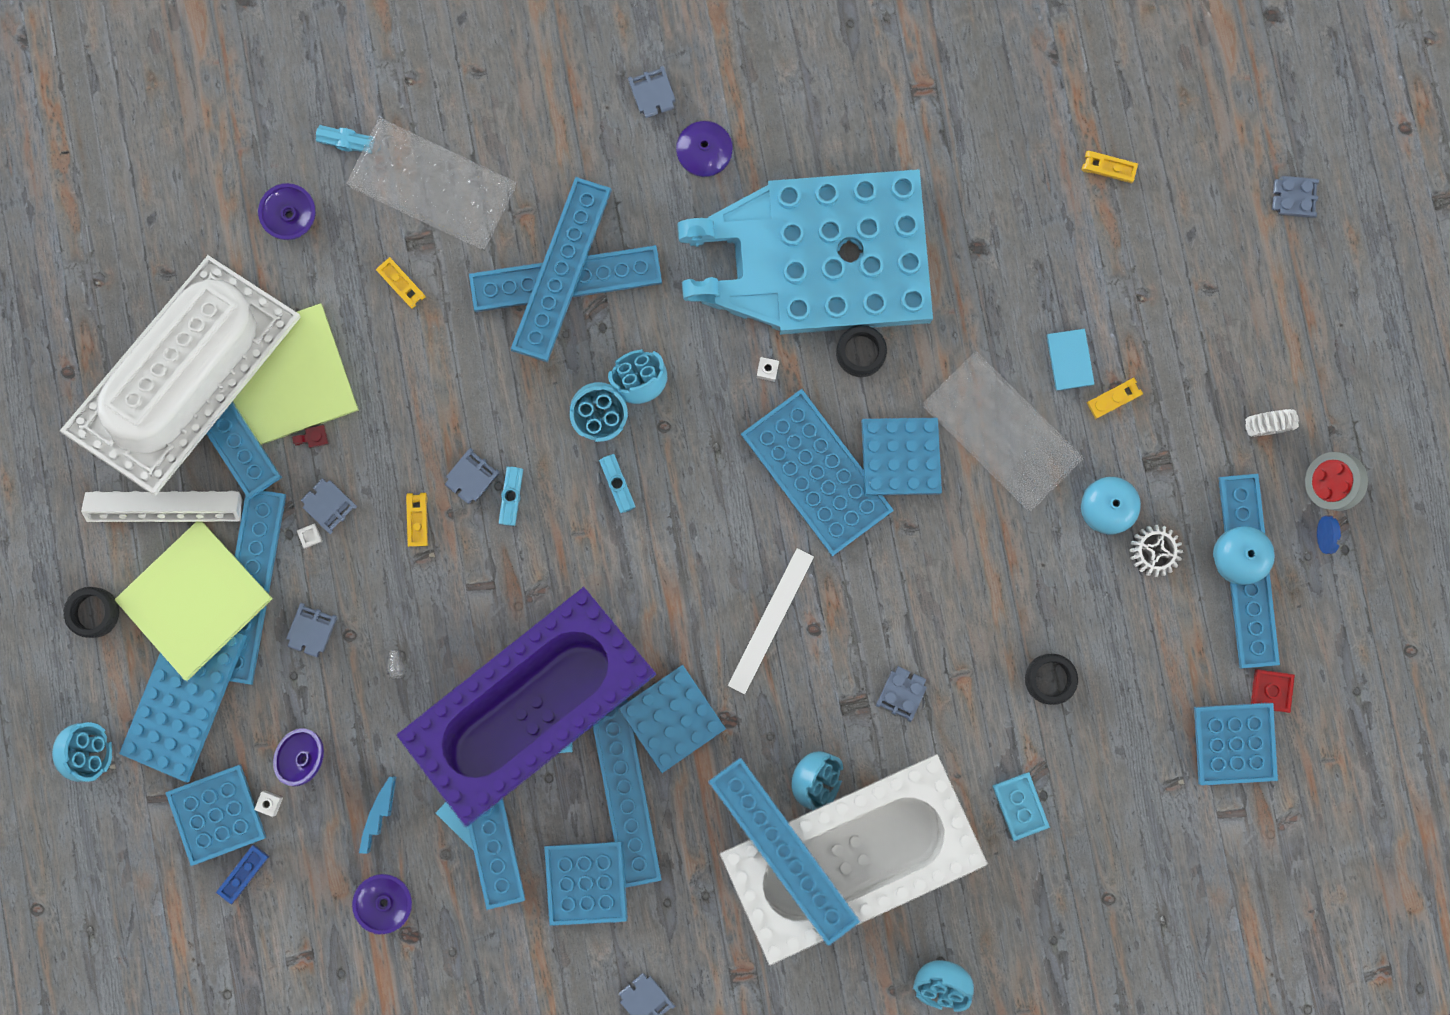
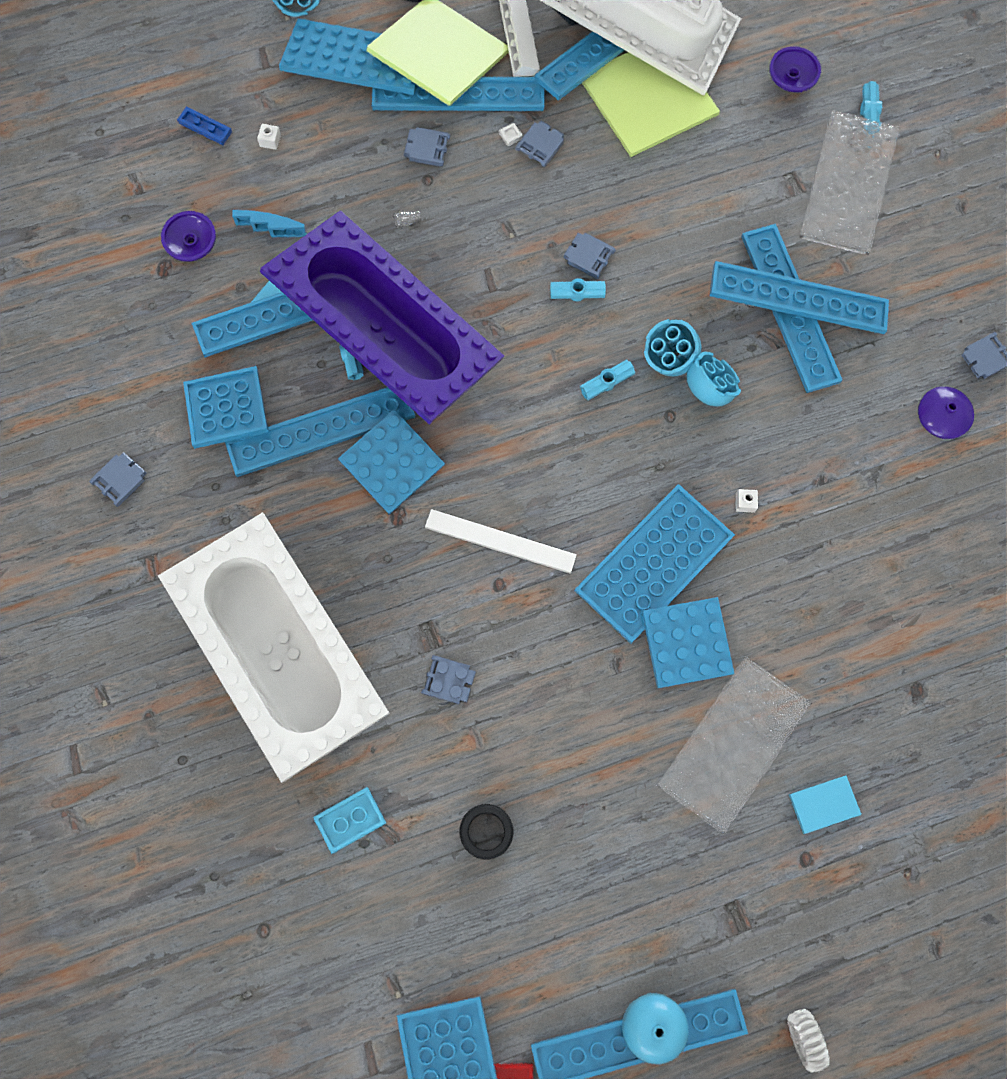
camera: 80 degrees right, 10 degrees down
(215, 815) = (254, 97): dark azure plate -> none
(298, 757) = (312, 150): dark purple dish -> none
(314, 437) = (598, 124): dark red plate -> none
(400, 282) = (753, 170): yellow plate -> none
(417, 520) = (541, 216): yellow plate -> none
(784, 851) = (269, 571): dark azure plate -> none
(790, 258) = (868, 504): medium azure plate -> none
(811, 774) = (354, 597): medium azure cylinder -> none
(864, 331) = (798, 573): black tyre -> none
(948, 980) = (161, 766): medium azure cylinder -> none
(1099, 510) = (666, 870): medium azure cylinder -> none
(1114, 398) = (794, 858): yellow plate -> none
(1159, 543) = (642, 918): white gear -> none

